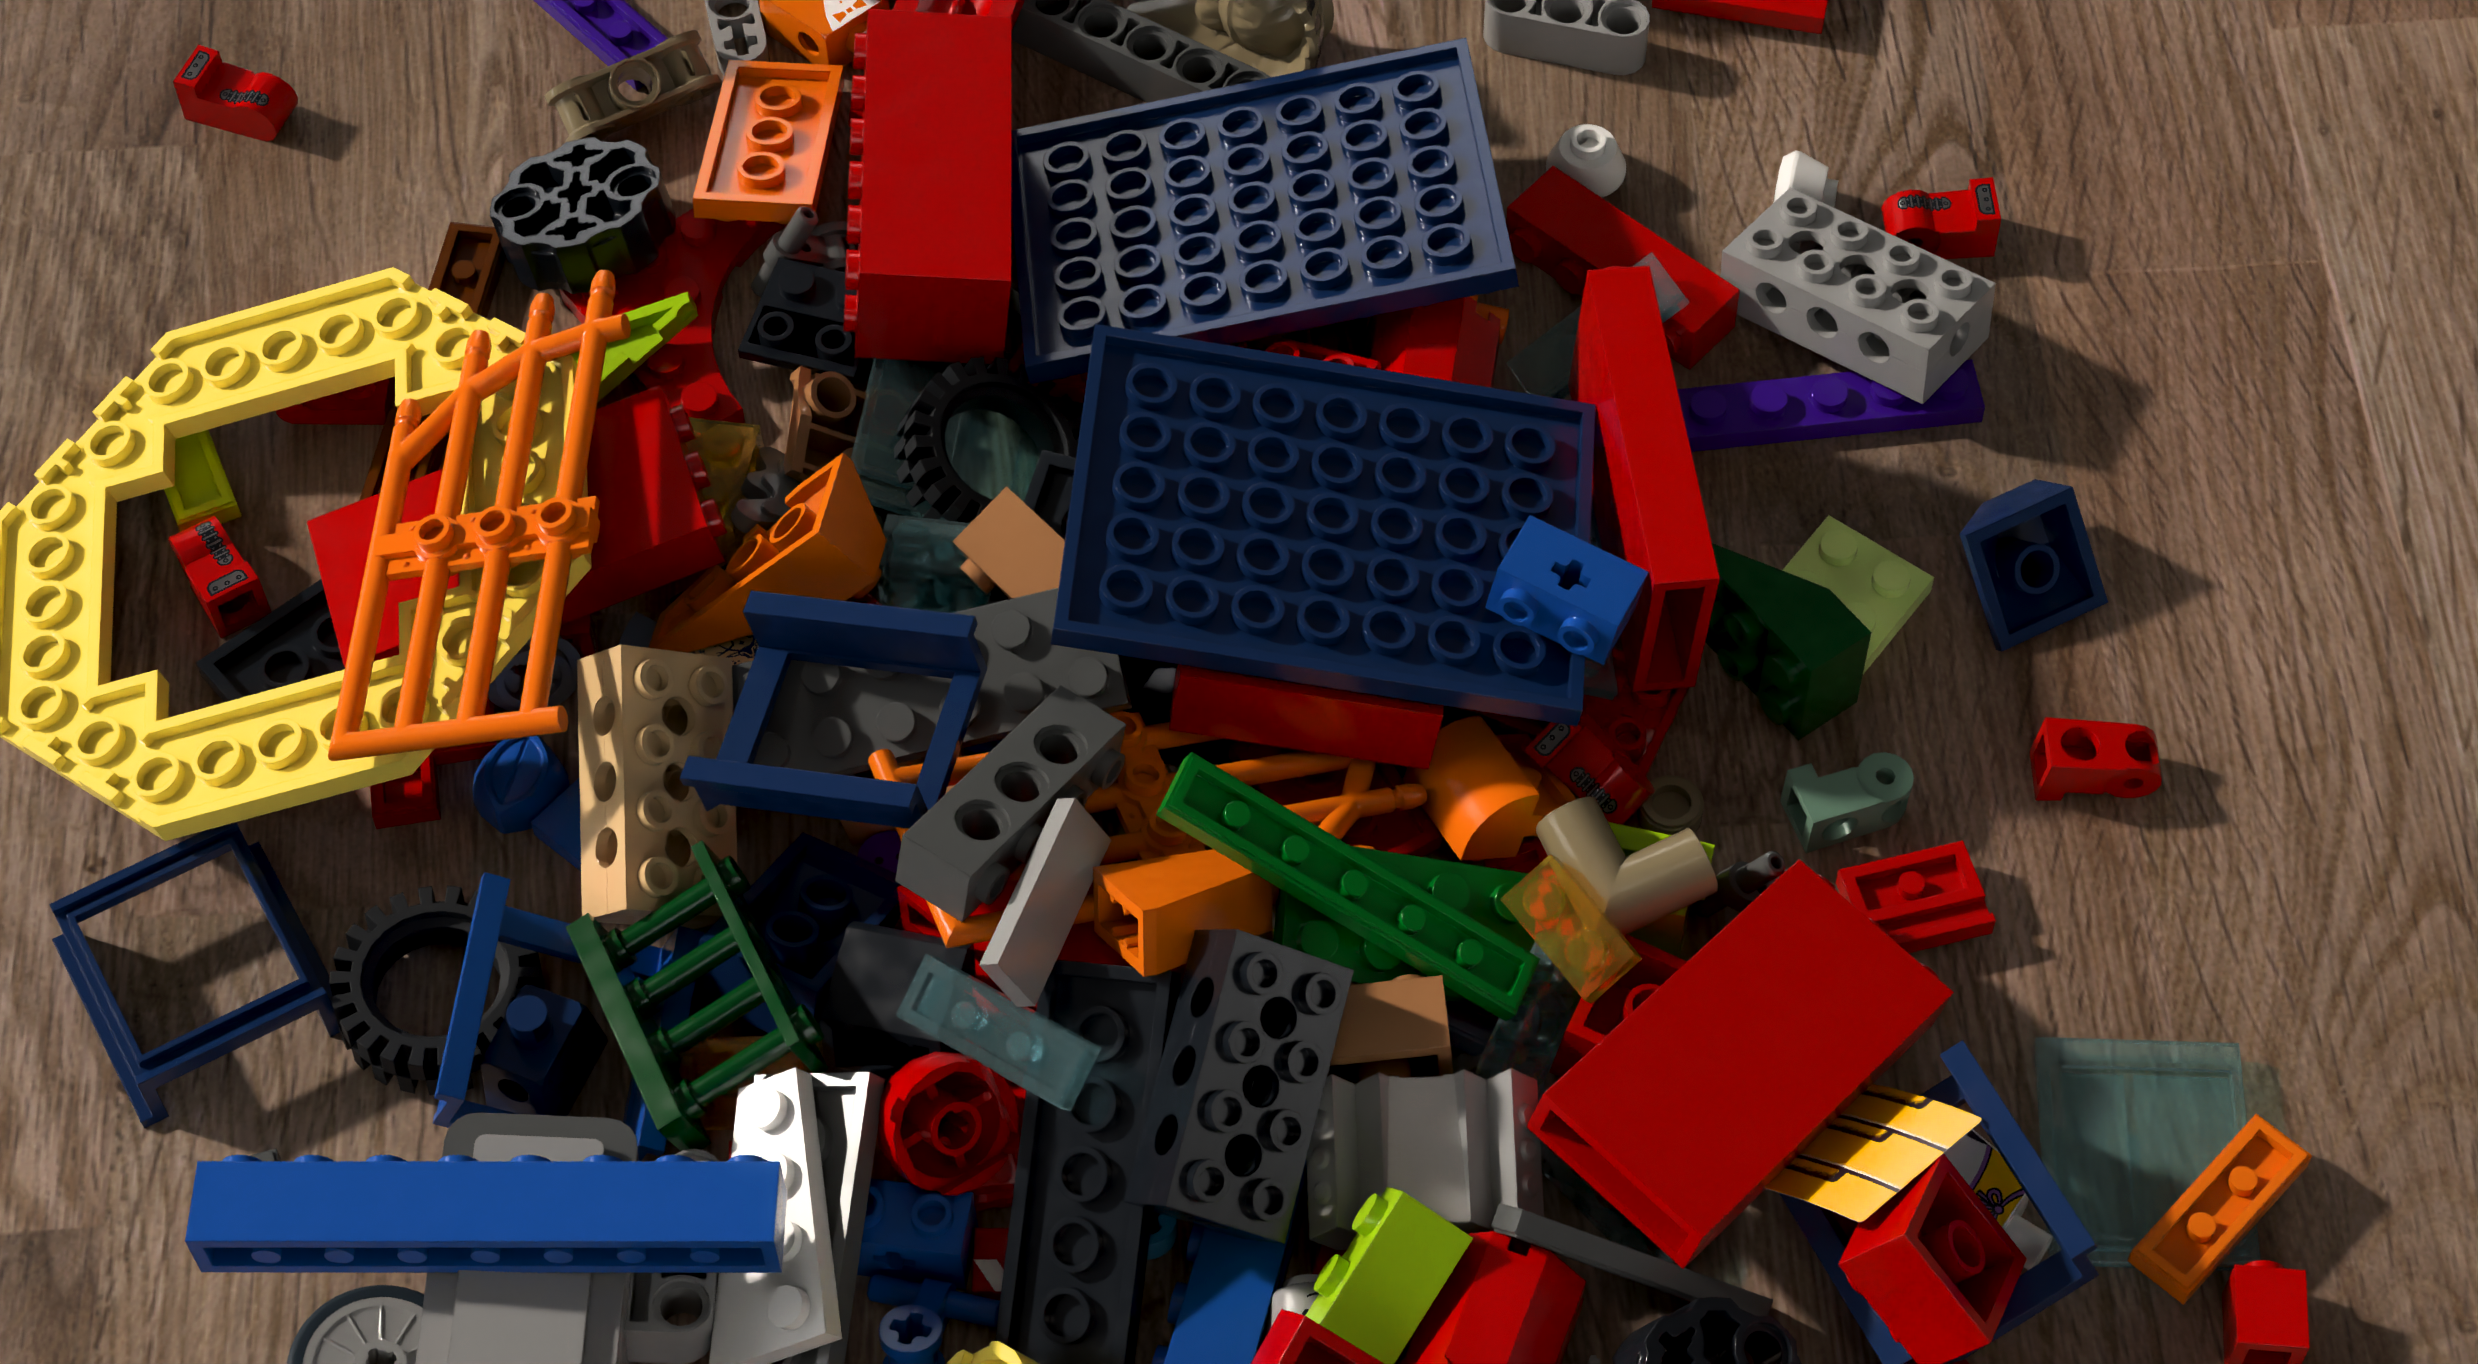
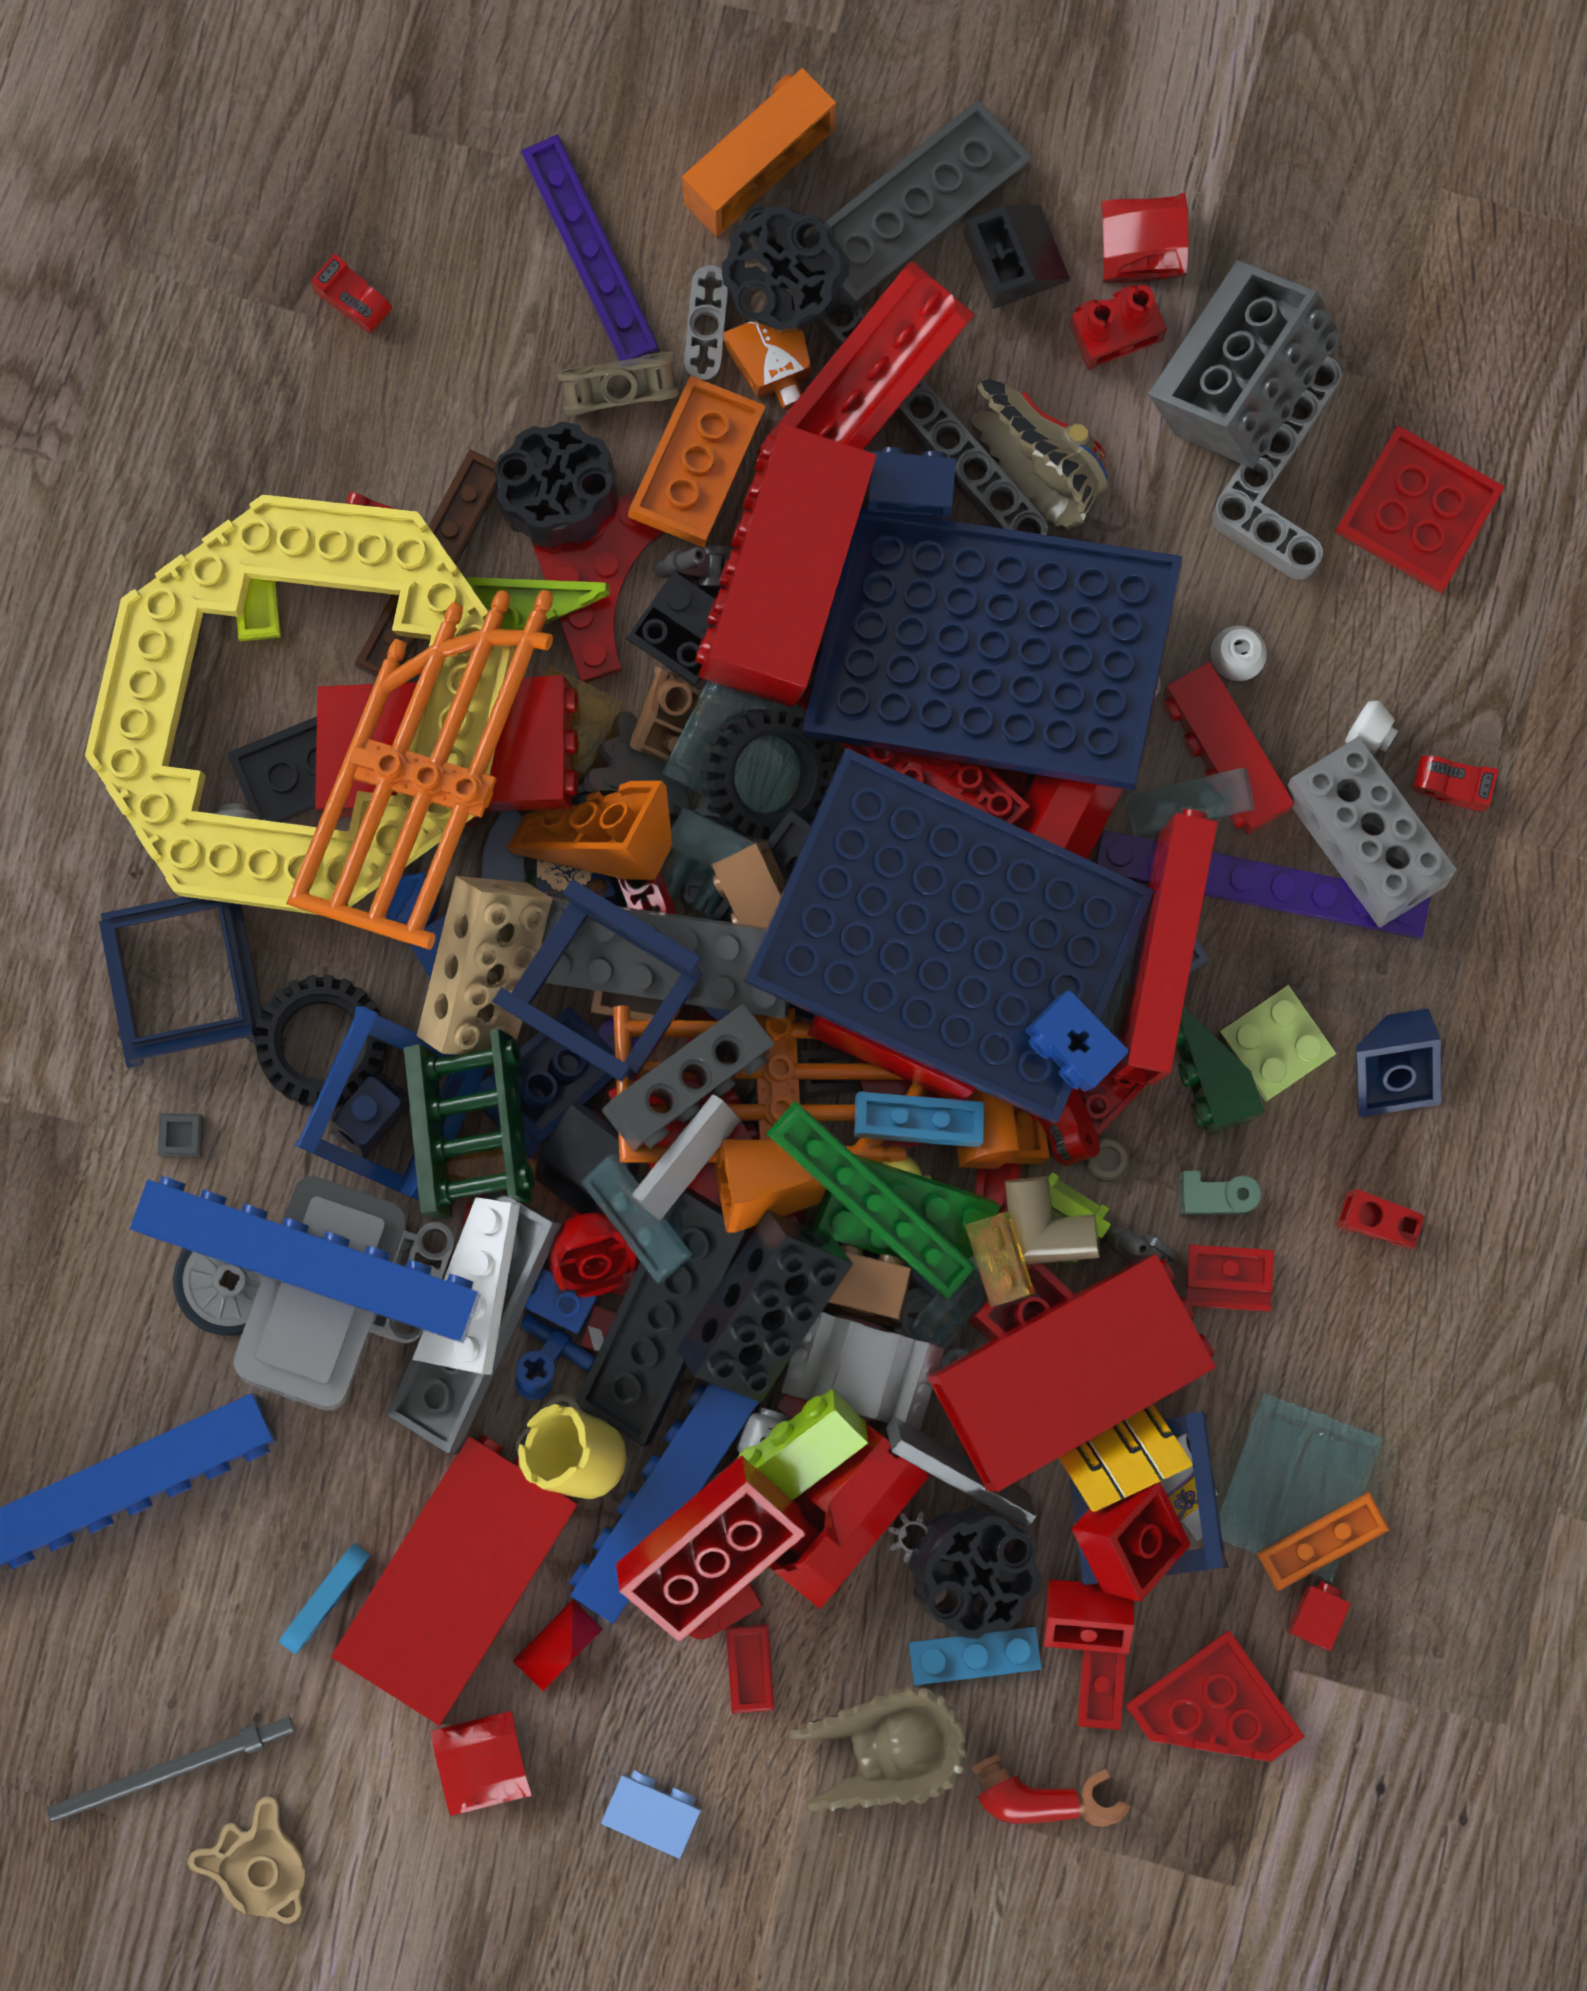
camera: 15 degrees right, 25 degrees up
(219, 575) = (255, 687): red leg -> none
(1072, 70) = (912, 483): none -> dark blue slope
(1380, 789) = (919, 1119): none -> dark azure plate

